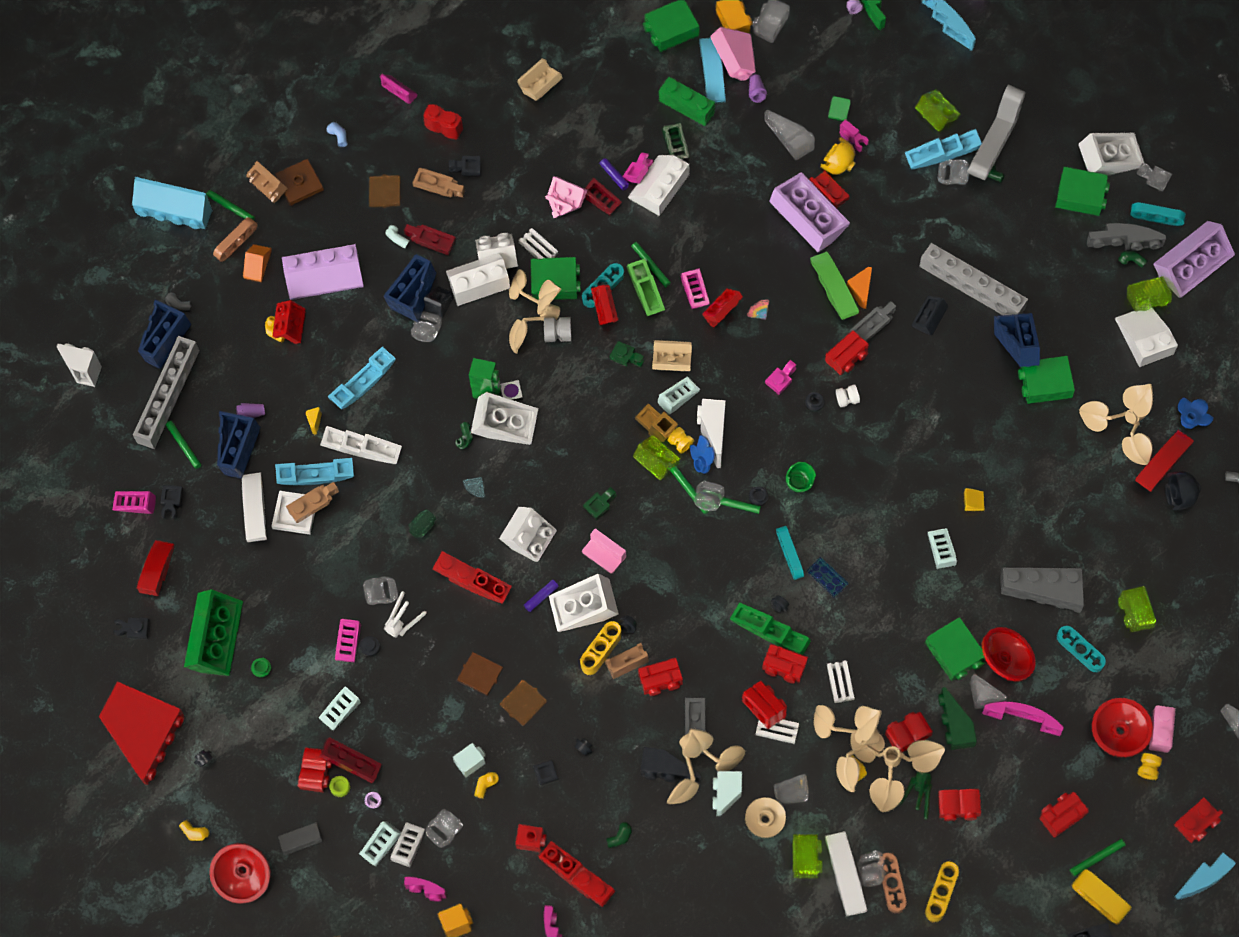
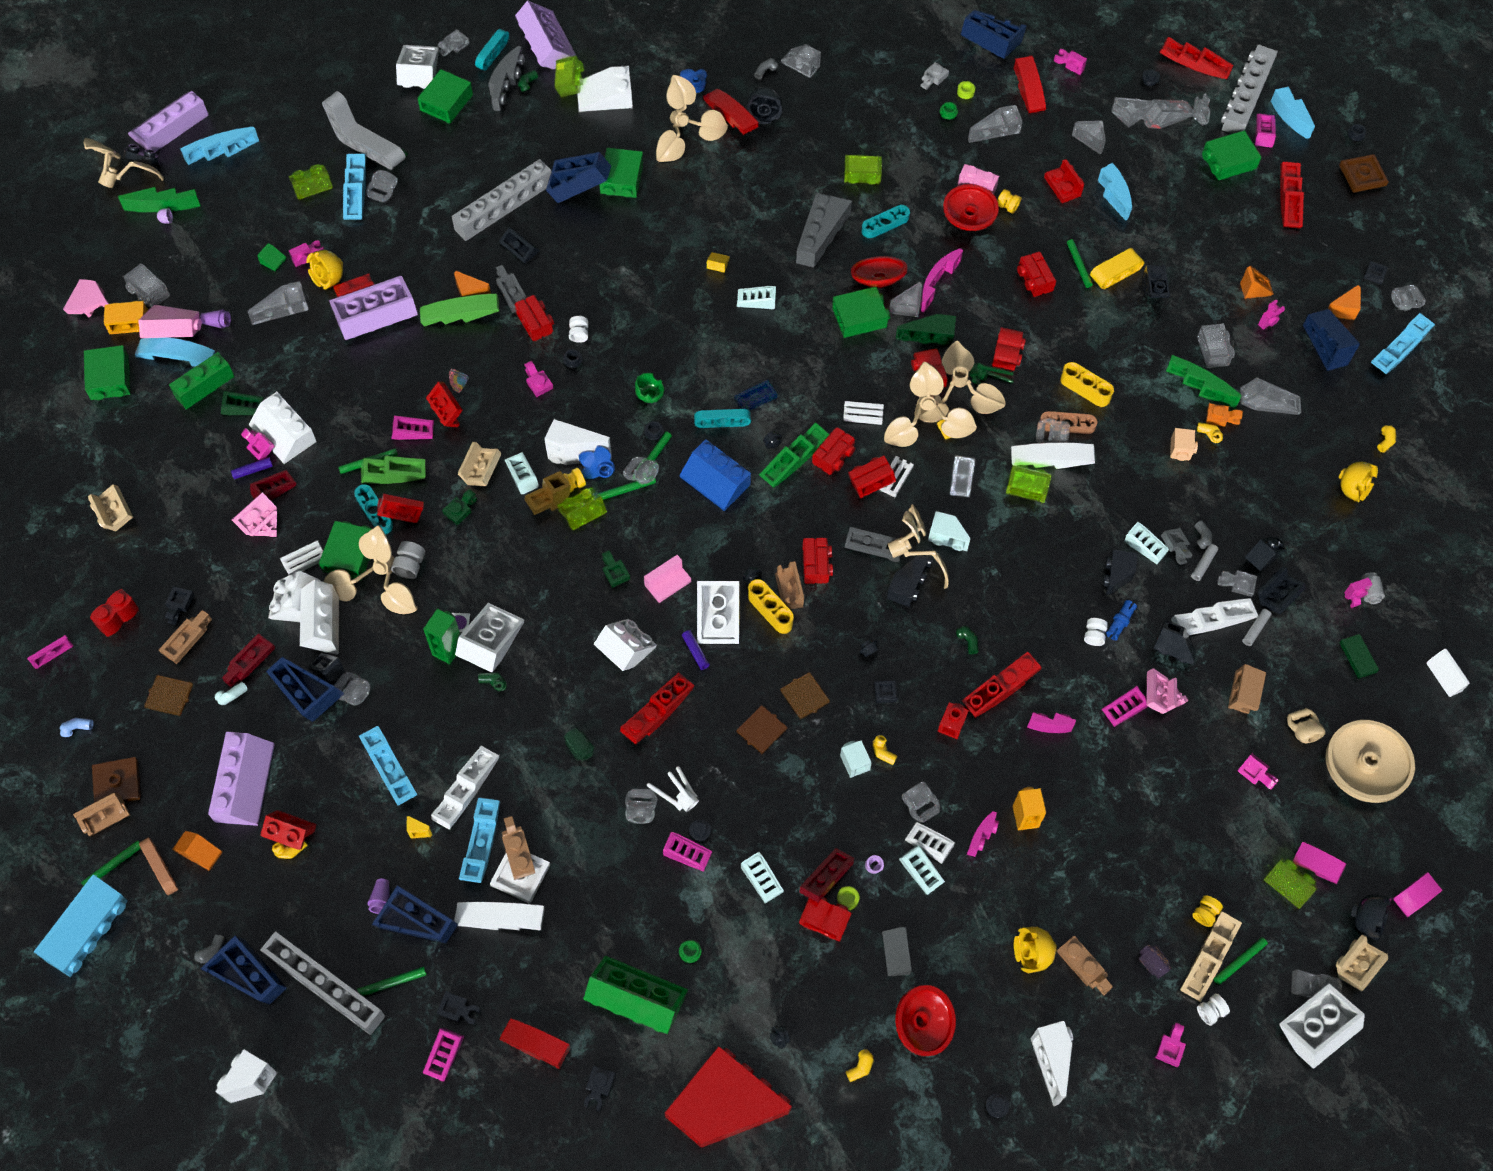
camera: 80 degrees left, 5 degrees down
(474, 486) = (553, 684): clear light blue tile -> none
(725, 563) = (715, 475): none -> blue slope
(769, 808) = (983, 499): tan dish -> none

